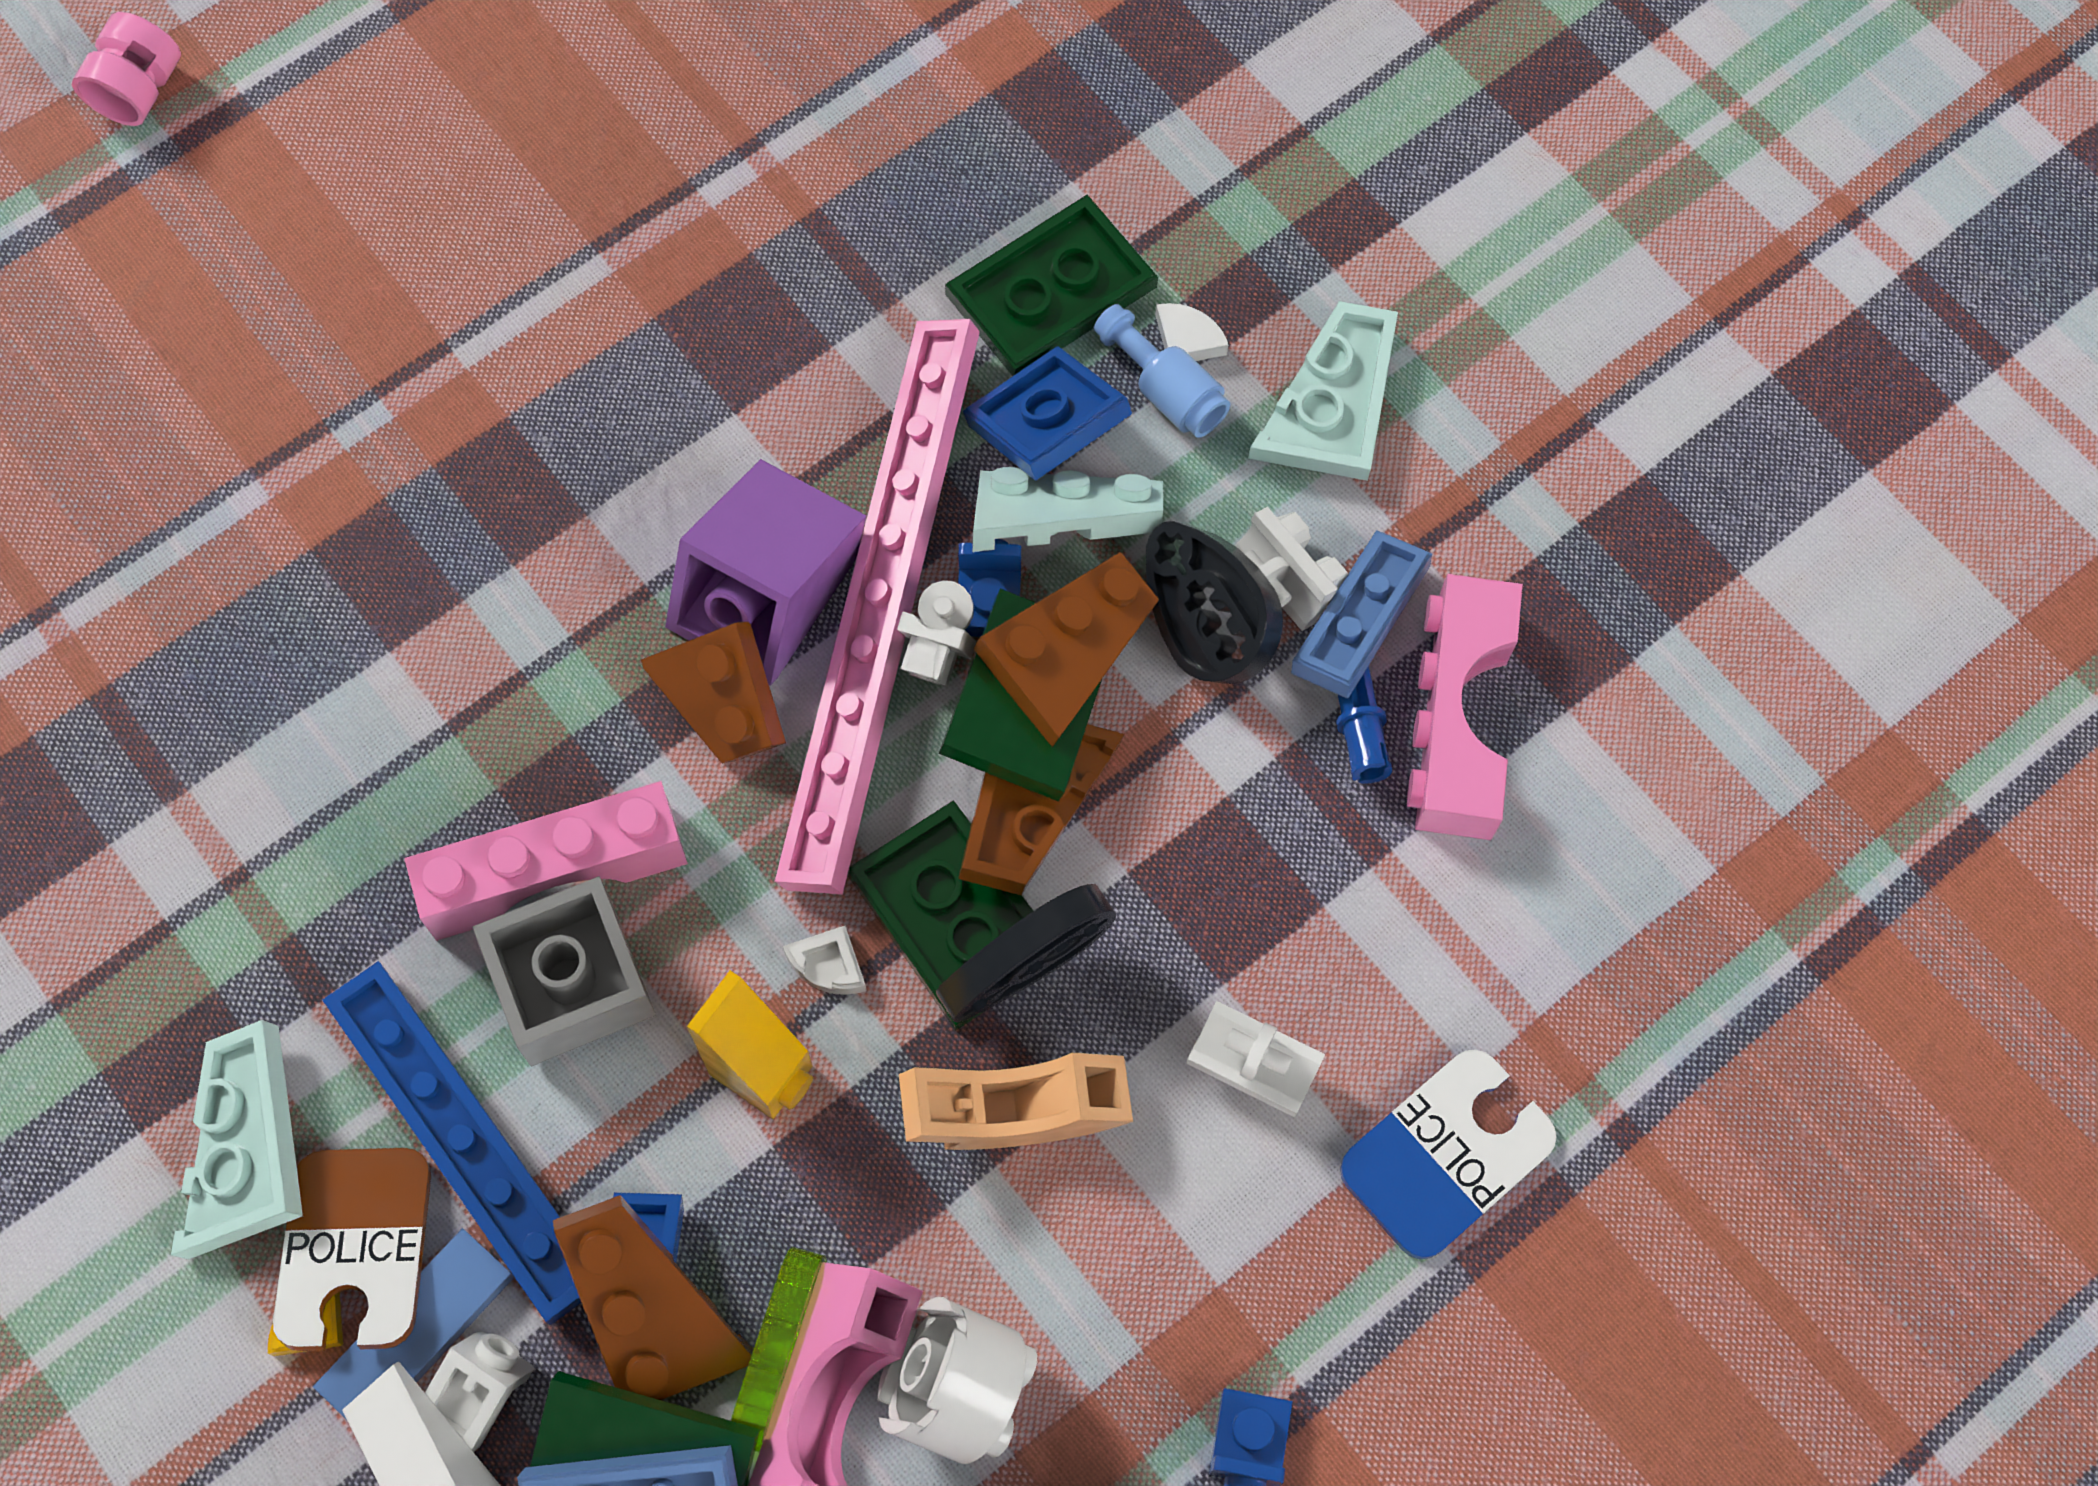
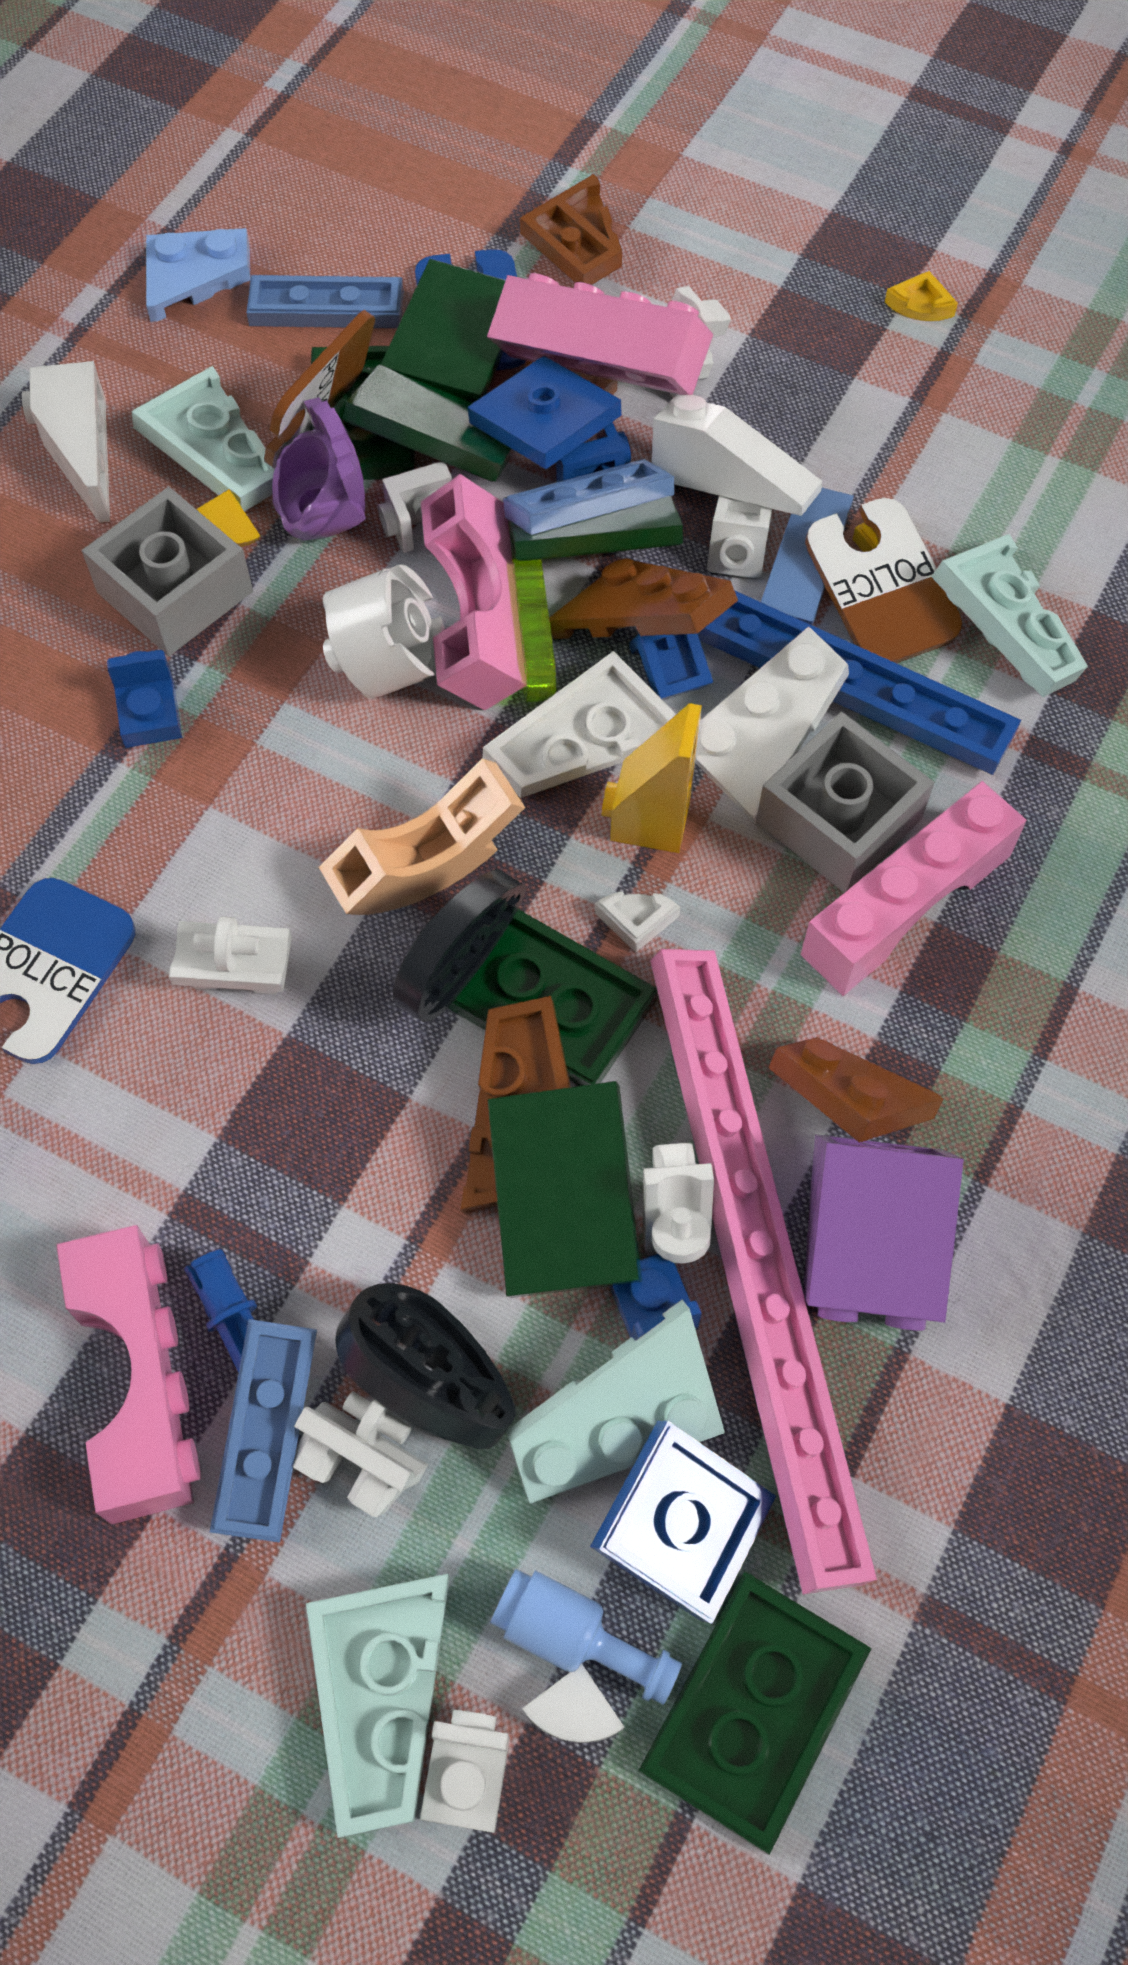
camera: 160 degrees right, 5 degrees down
(586, 1112) = (769, 718): none -> white wing
(767, 1199) = (580, 729): none -> white wing
(1067, 643) = (544, 1254): dark orange wing -> none
(1286, 325) = (465, 1772): none -> white bracket

